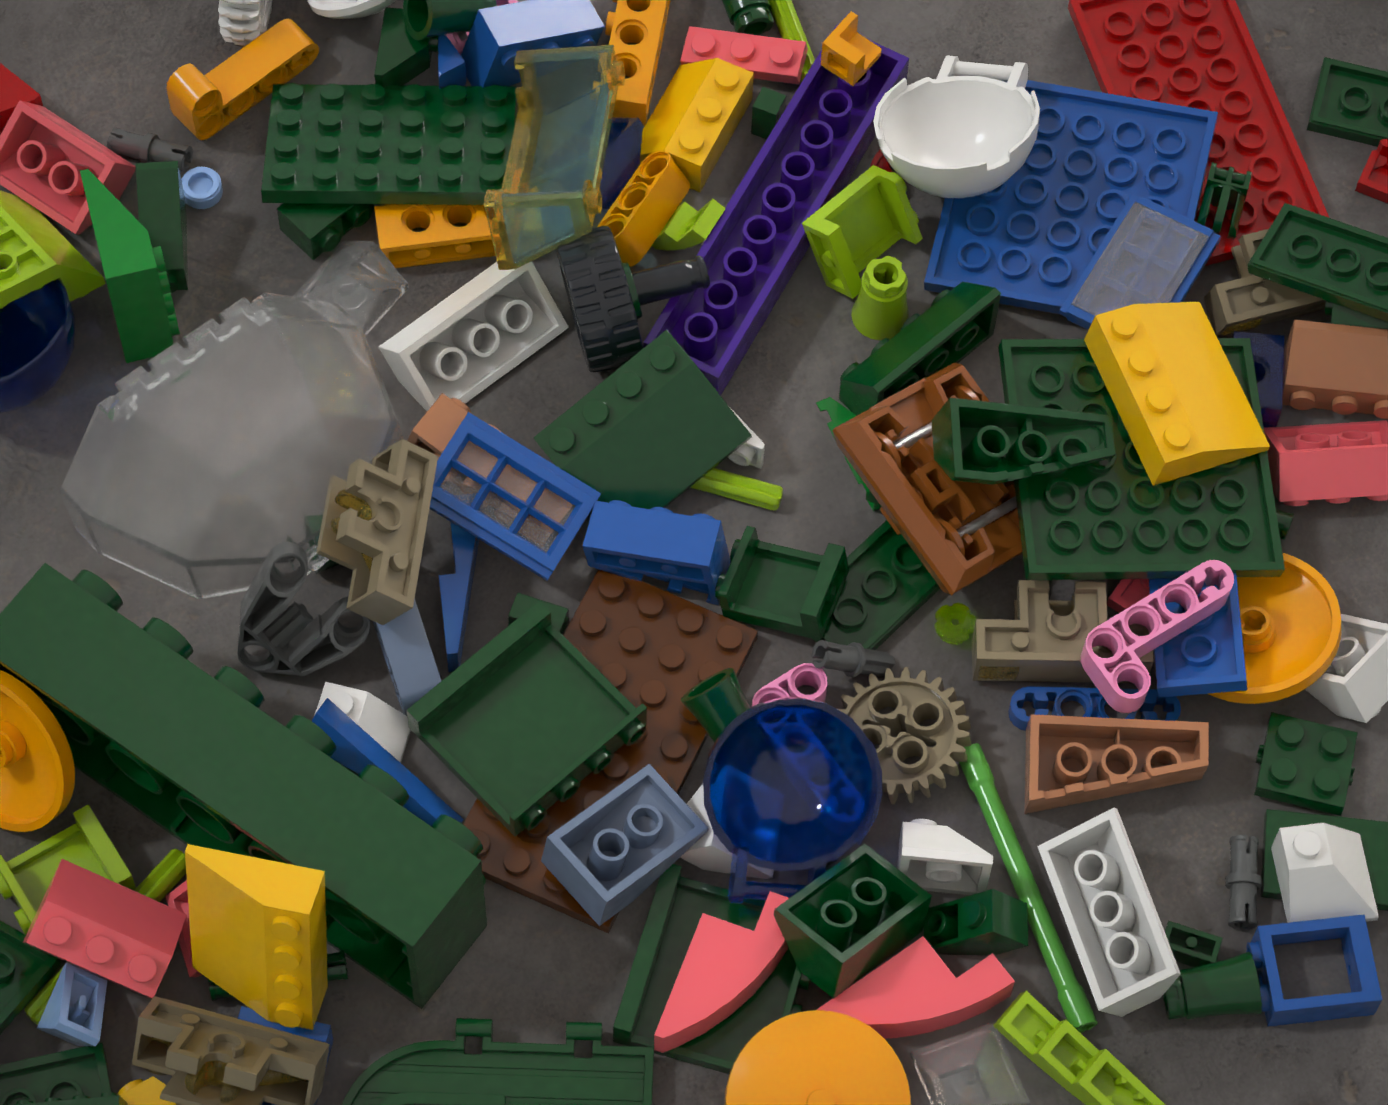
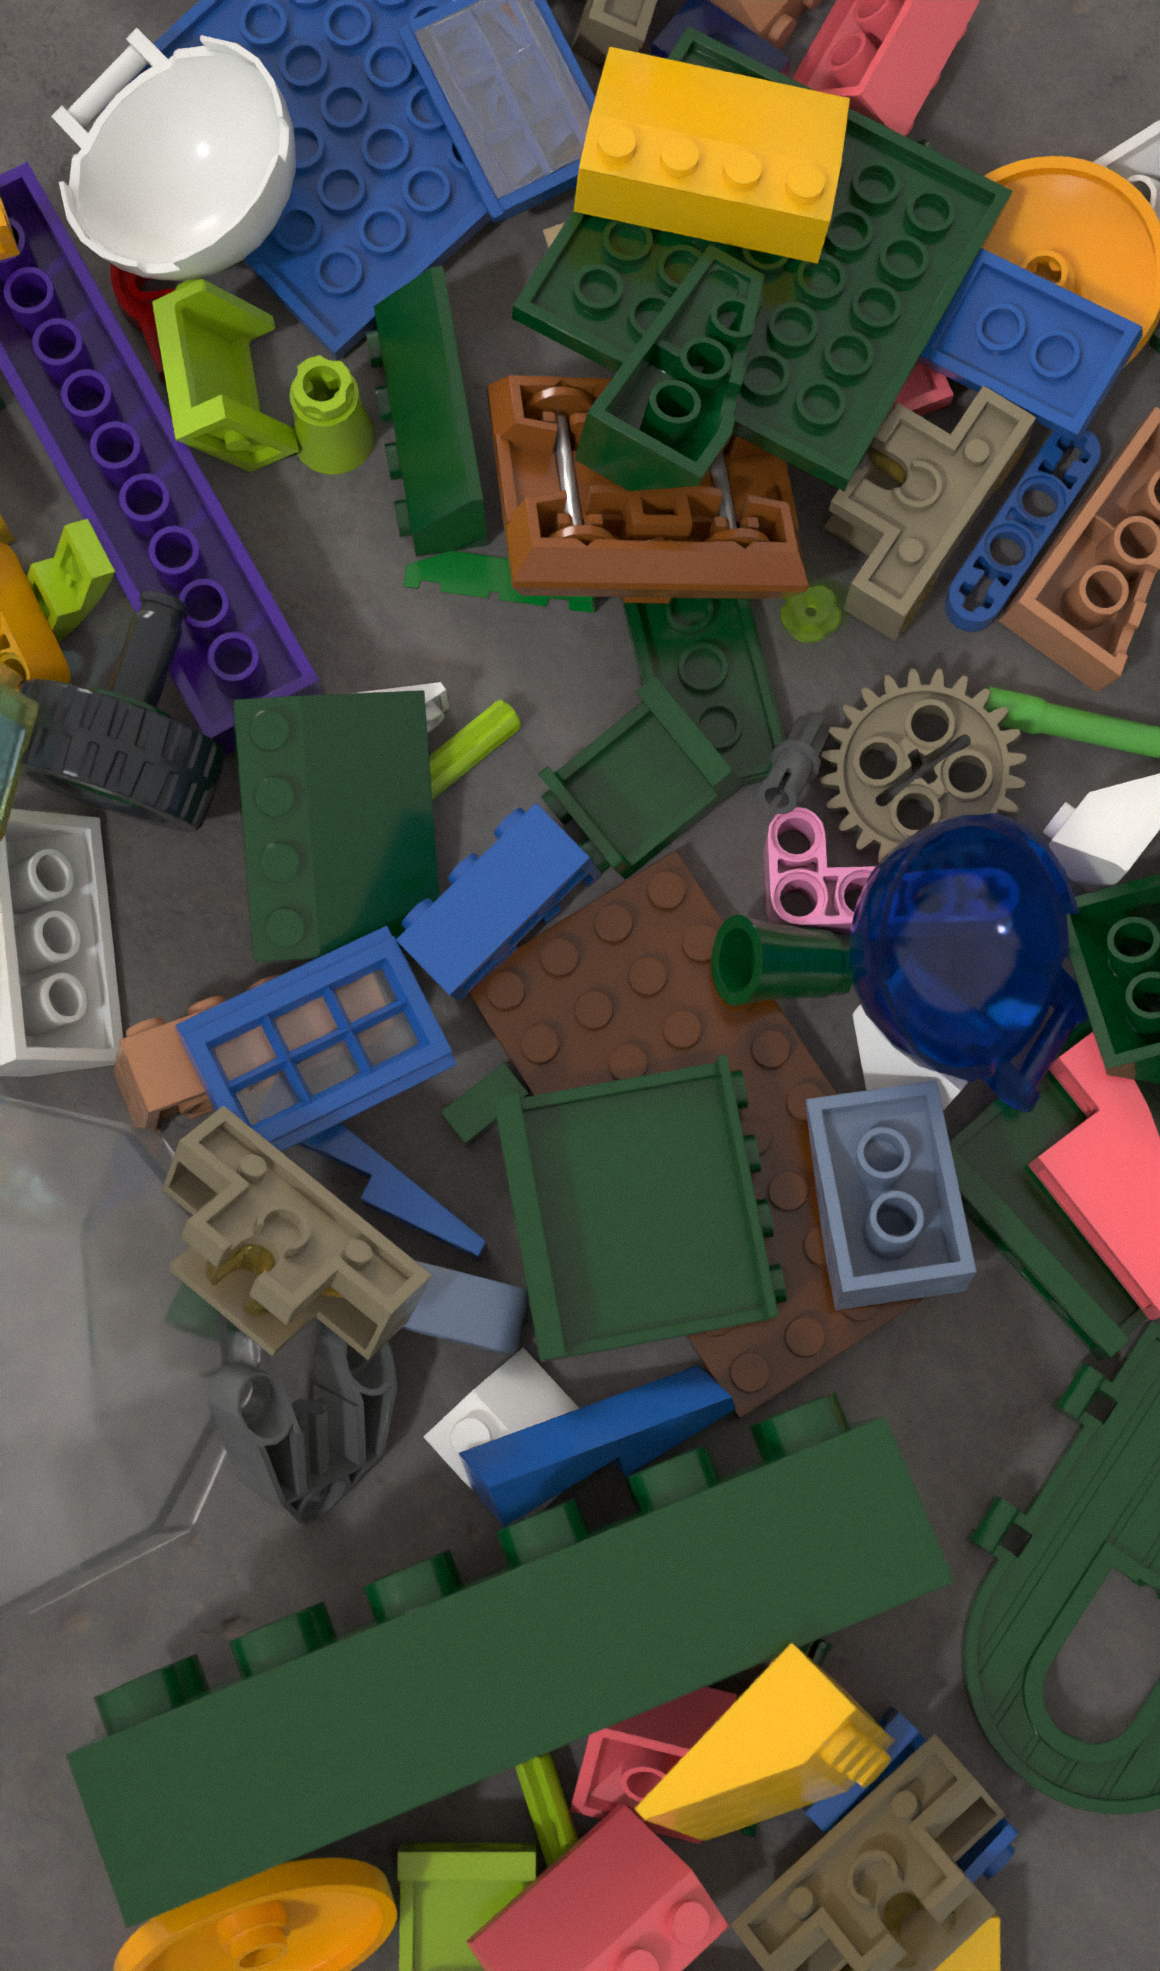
camera: 55 degrees left, 15 degrees up
(1161, 625) = (1013, 377): bright pink beam -> none

